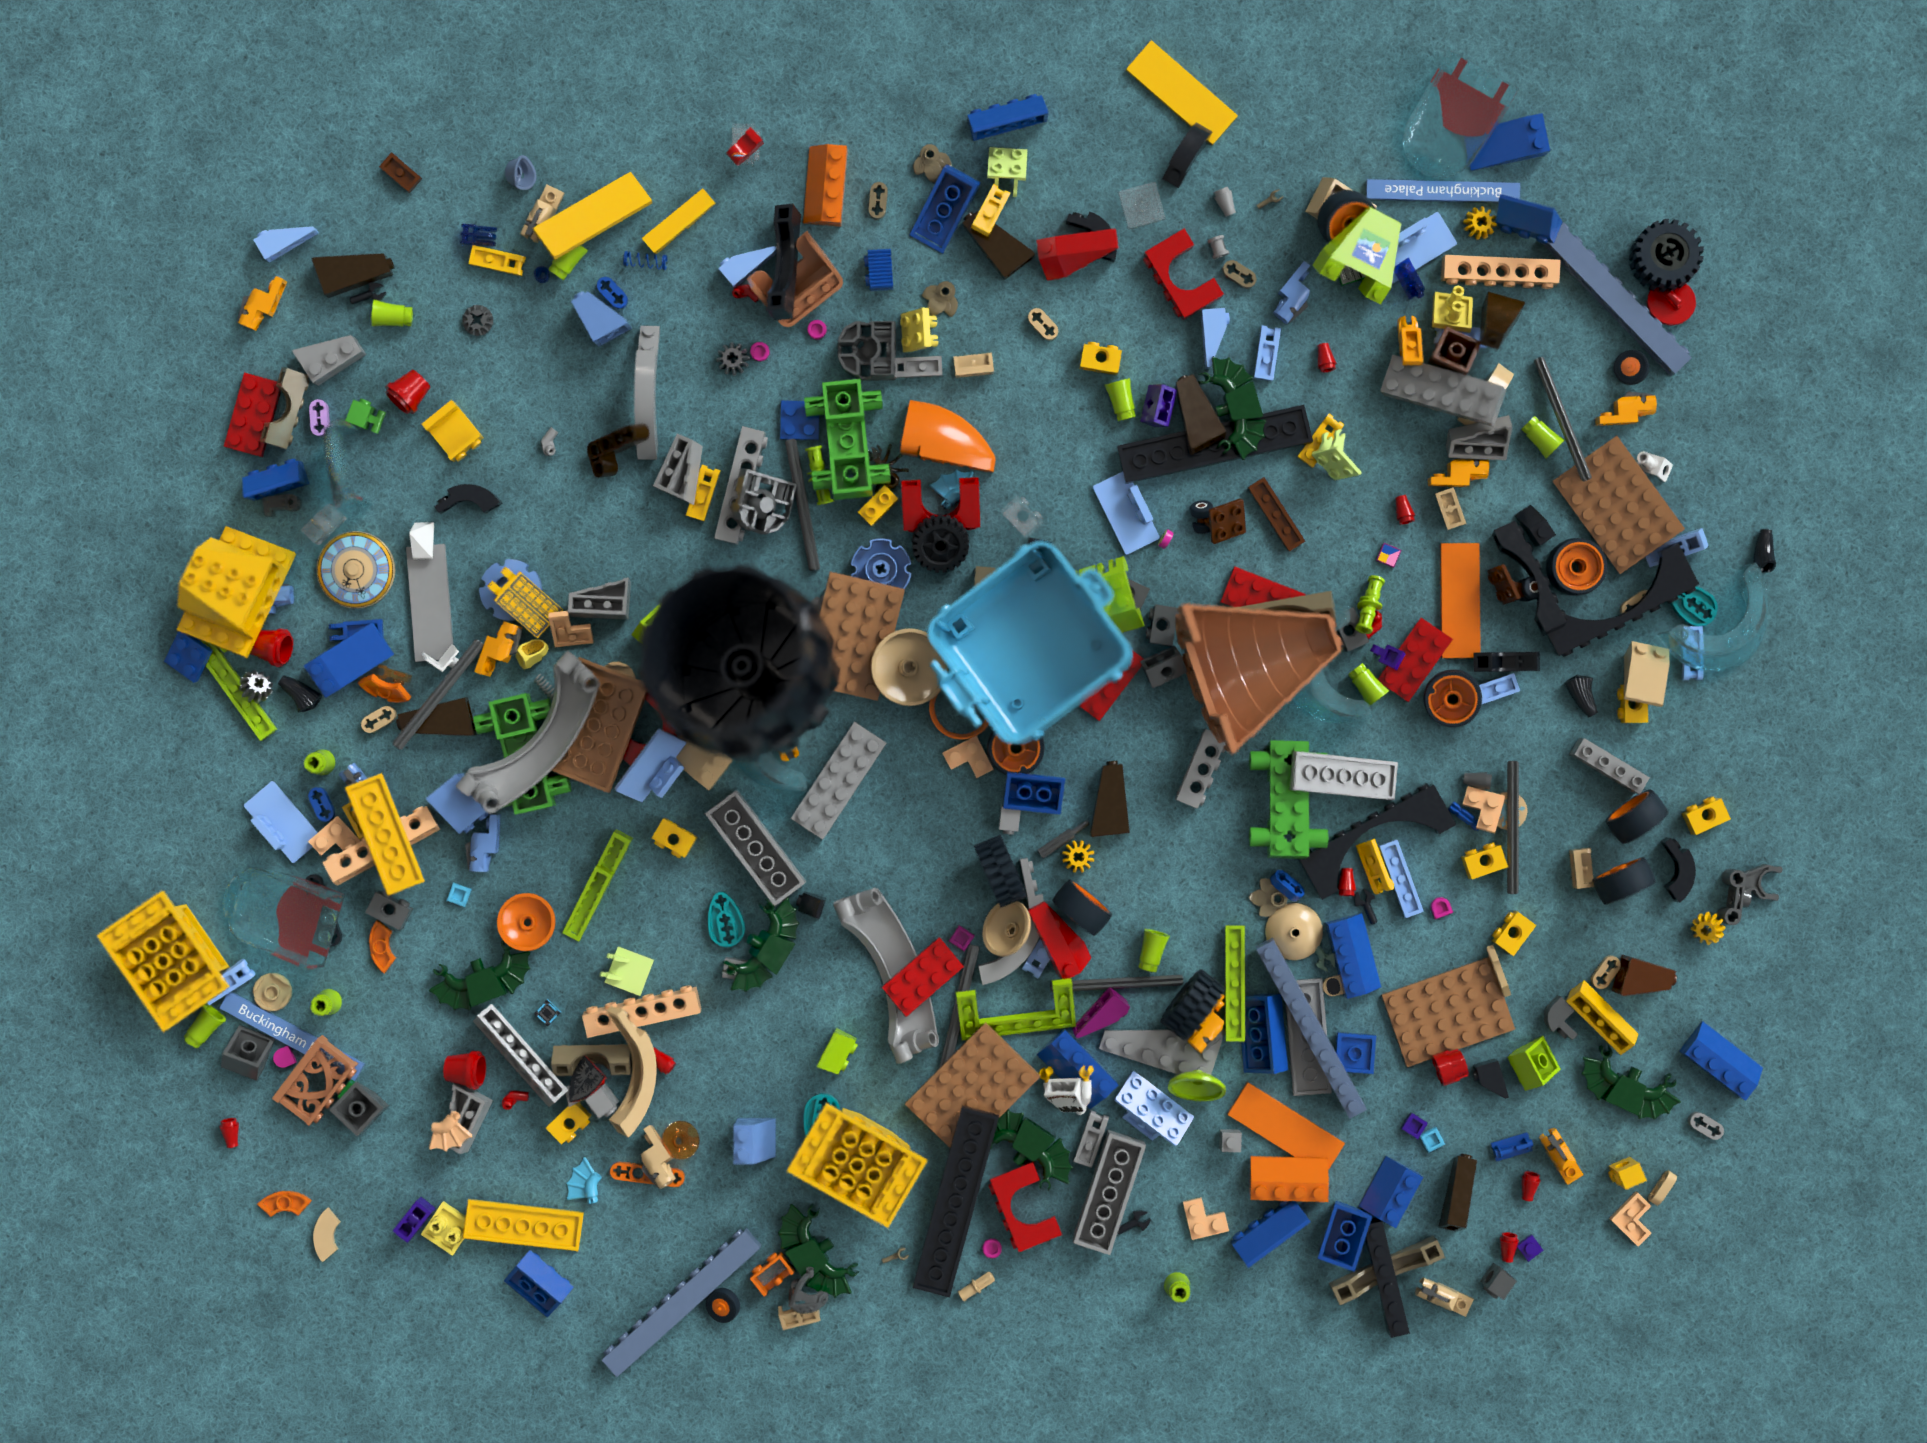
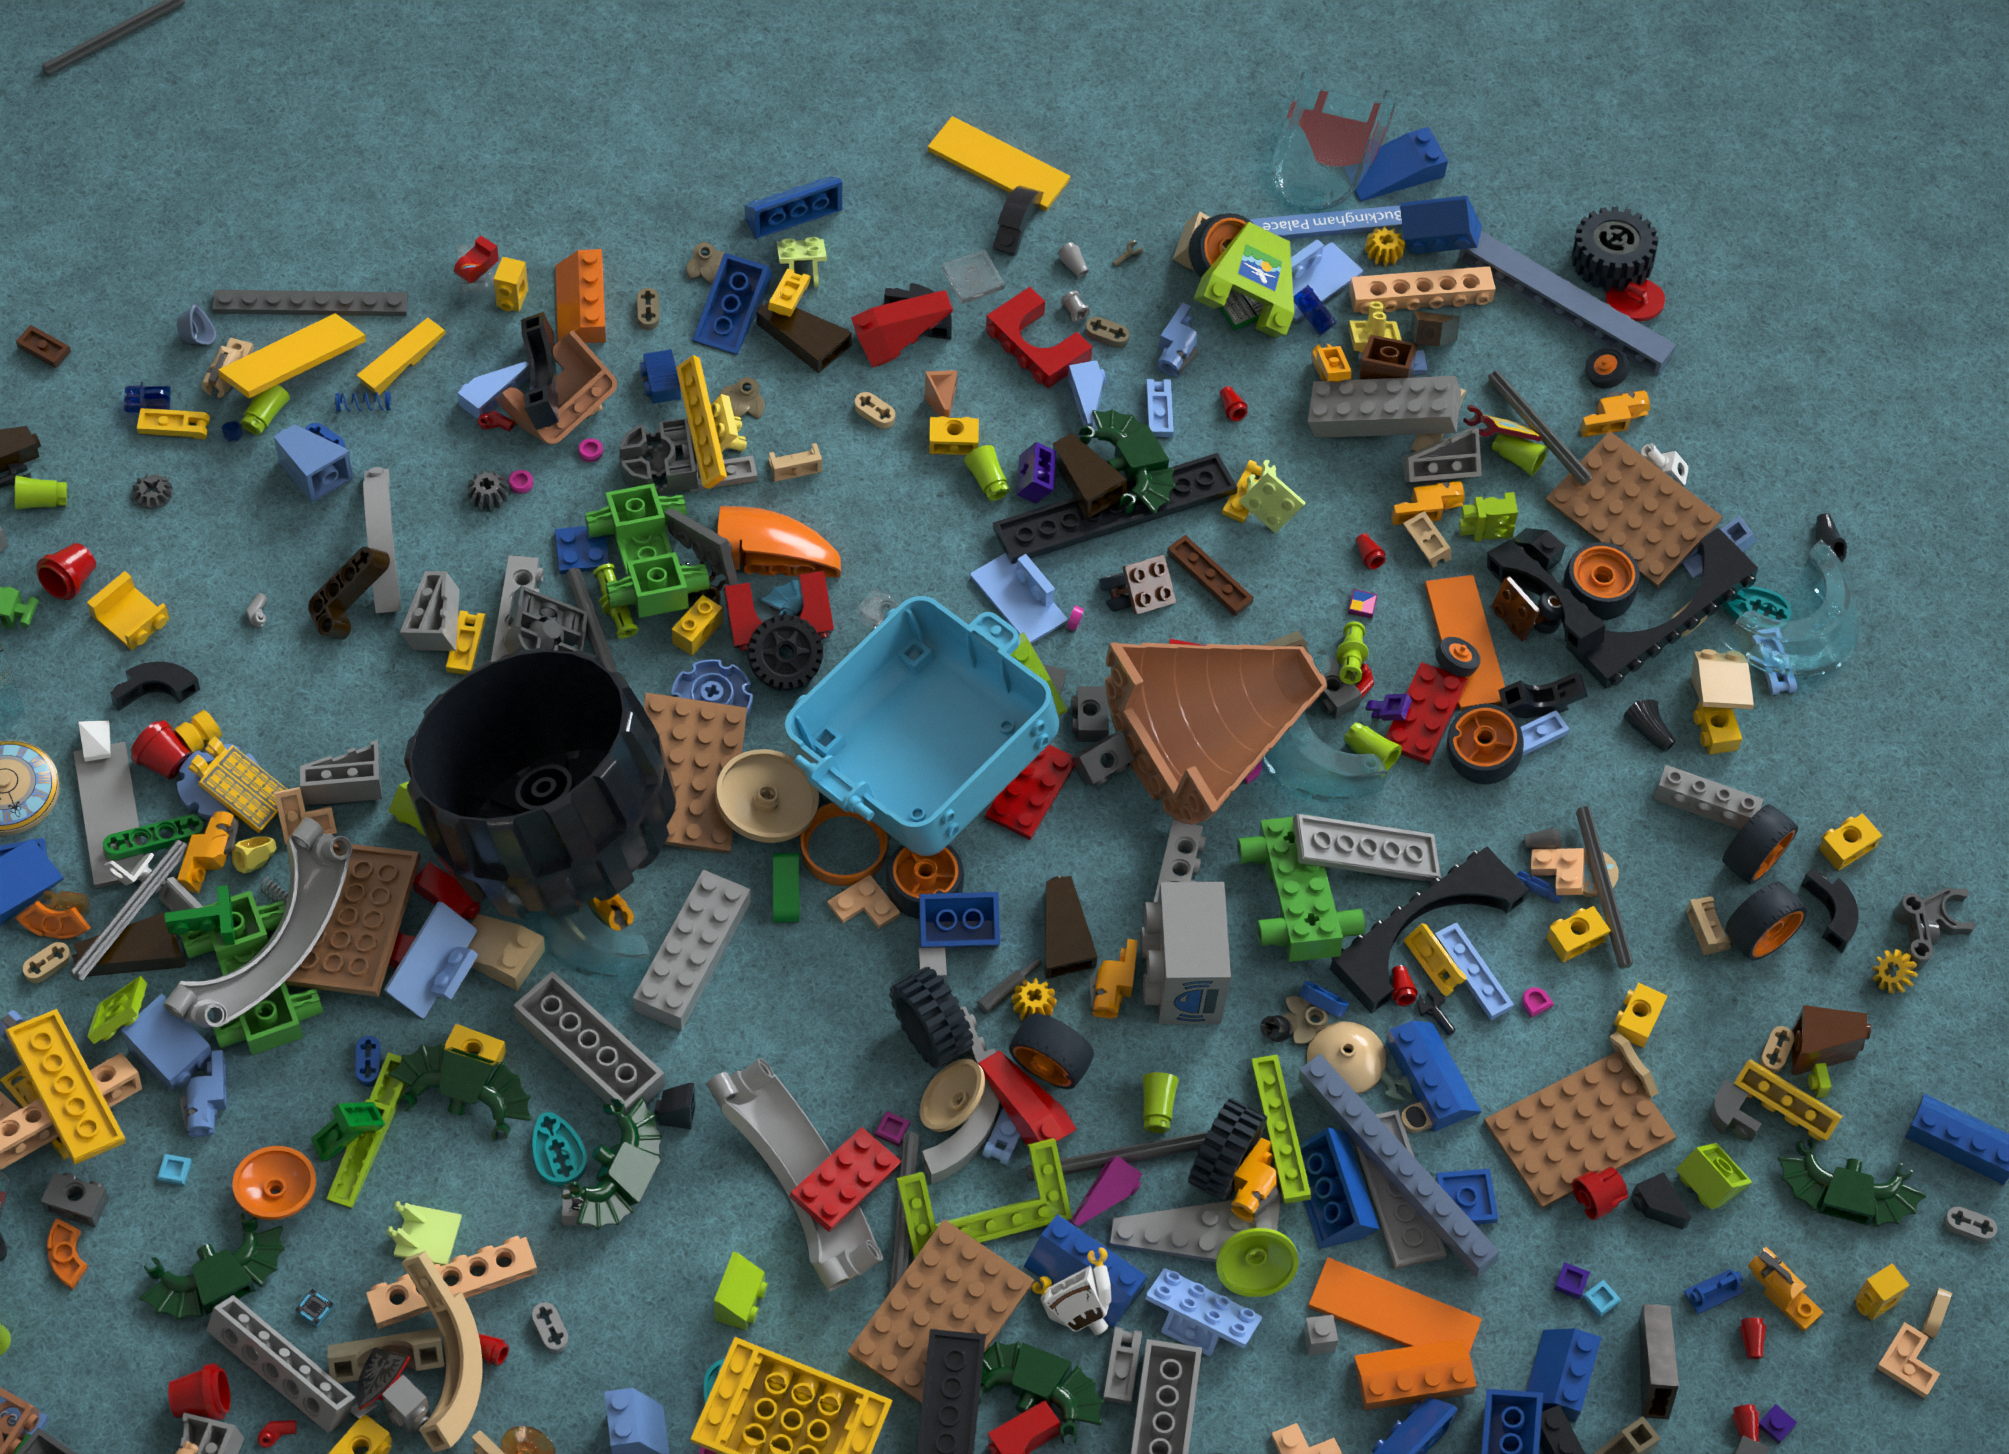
camera: 20 degrees left, 30 degrees down
(425, 777) = (117, 1010): none -> lime plate
(459, 627) = (151, 832): none -> green beam
(469, 560) = (159, 750): none -> red piece
(477, 688) = (177, 897): none -> light grey tile
(493, 717) = (205, 918): none -> green bracket
(497, 546) = (198, 732): none -> yellow wheel
(581, 889) = (348, 1124): none -> green bracket
(604, 832) = (374, 1061): none -> blue beam
(612, 157) = (310, 302): none -> dark grey plate
(665, 865) = (465, 1080): none -> dark green torso
(701, 1053) = (544, 1330): none -> light grey beam
(770, 169) = (510, 284): none -> yellow brick
(891, 444) = (704, 543): none -> dark grey wing
(903, 328) = (701, 422): none -> yellow plate
(913, 737) = (785, 887): none -> green beam
(1097, 317) = (940, 390): none -> nougat slope
(1138, 848) = (1113, 982): none -> light orange plate
(1194, 850) = (1186, 953): none -> light grey brick
(1248, 904) = (1276, 1035): none -> black bush
(1449, 620) = (1457, 656): none -> black wheel
(1503, 499) = (1489, 518): none -> lime hips
(1533, 416) = (1500, 425): none -> dark red flag
(1629, 1003) = (1819, 1080): none -> lime plate

